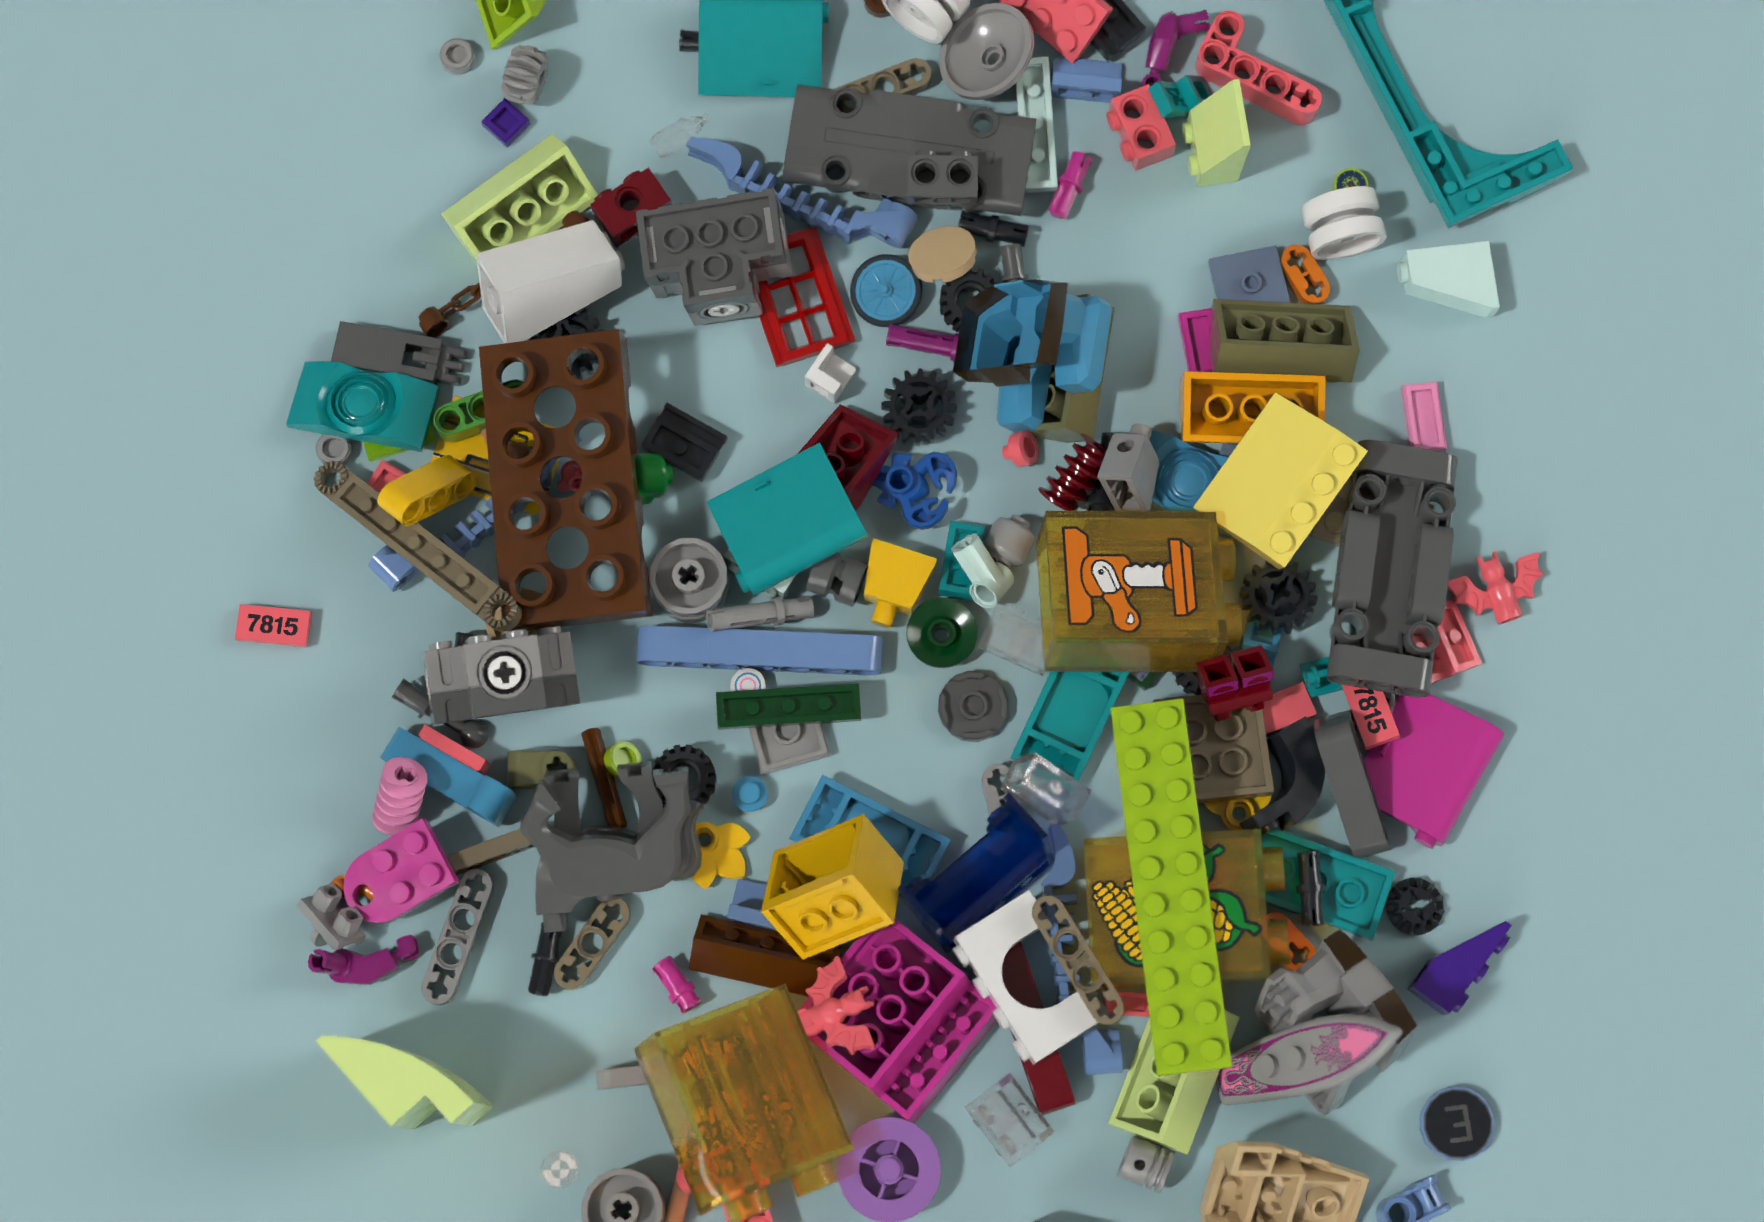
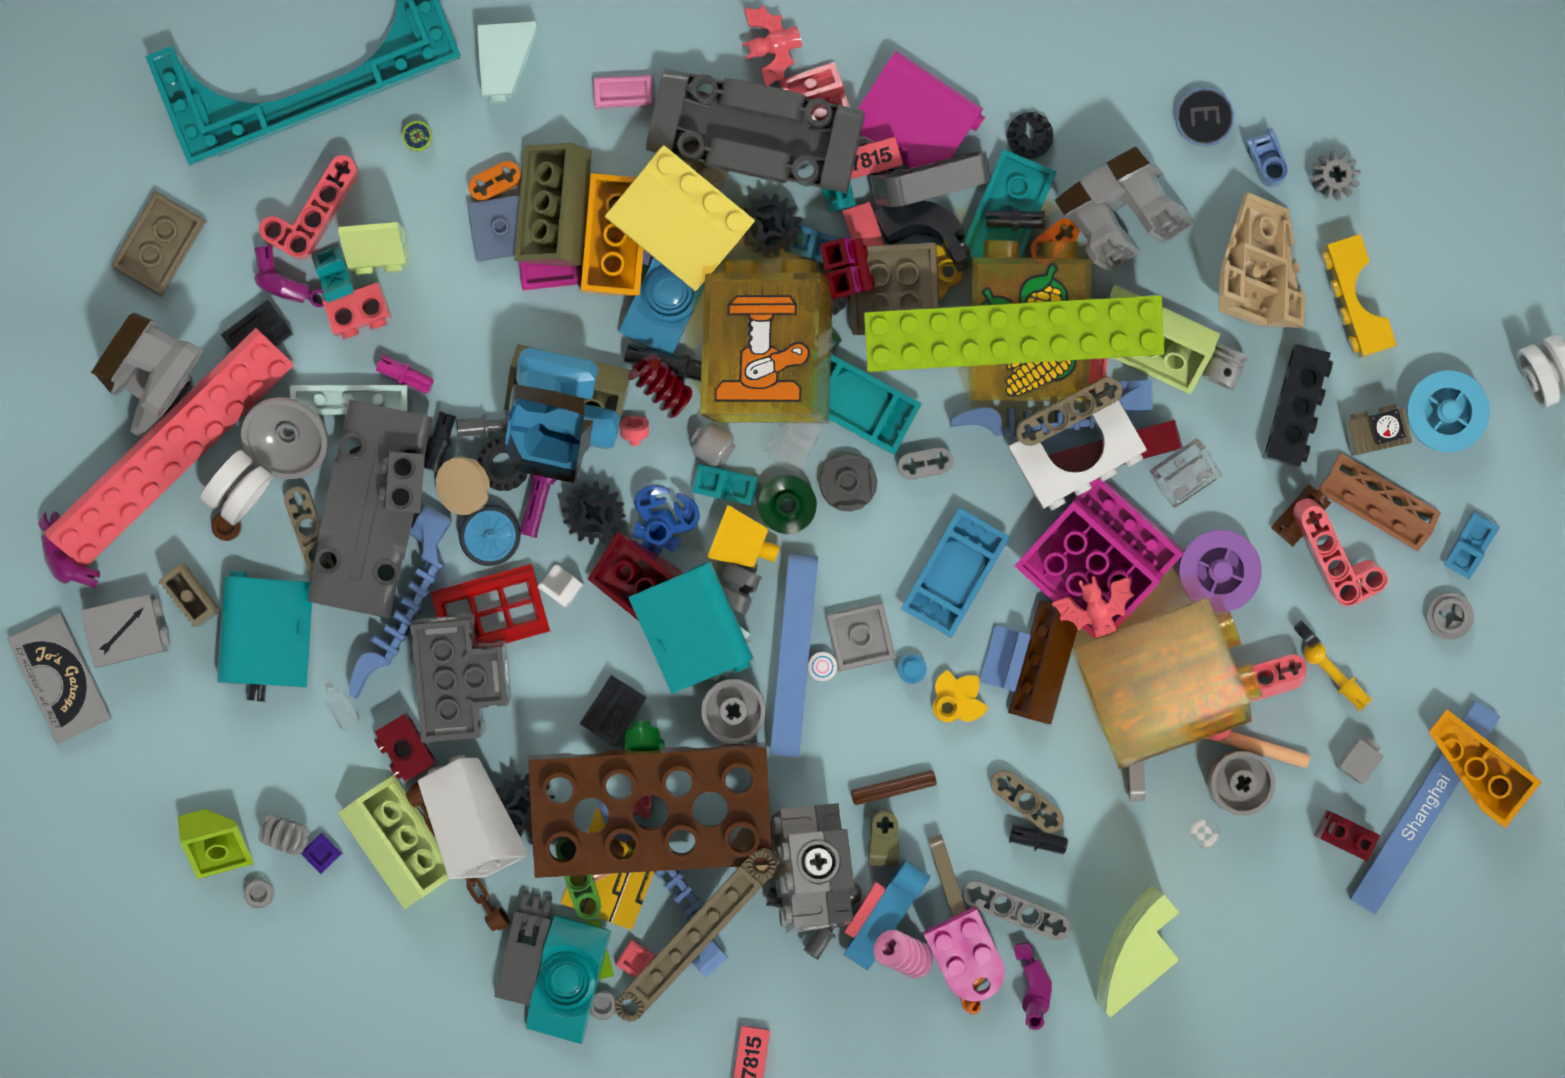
camera: 90 degrees left, 10 degrees up
(330, 921) = (1000, 1012): light grey hips -> none
(427, 490) = (648, 925): yellow beam -> none
(610, 859) = (963, 784): dark grey piece -> none
(620, 753) = (878, 771): lime tile -> none
(680, 990) = (1064, 734): dark pink pin -> none
(699, 761) = (914, 727): black tyre -> none
(773, 611) = (763, 640): light grey pin -> none
(788, 706) = (844, 633): dark green plate -> none
(833, 887) = (999, 603): yellow container -> none
(982, 877) = (993, 486): clear blue windscreen -> none
(988, 578) = (743, 464): light aqua piece -> none
(1045, 789) = (924, 427): clear brick -> none
(1086, 80) = (309, 353): medium blue panel -> none
(1130, 470) = (661, 340): light grey torso -> none
(1305, 1058) = (1156, 236): light grey piece -> none
(1343, 223) = (454, 146): white wheel -> none
(1449, 974) = (1085, 111): dark purple slope -> none

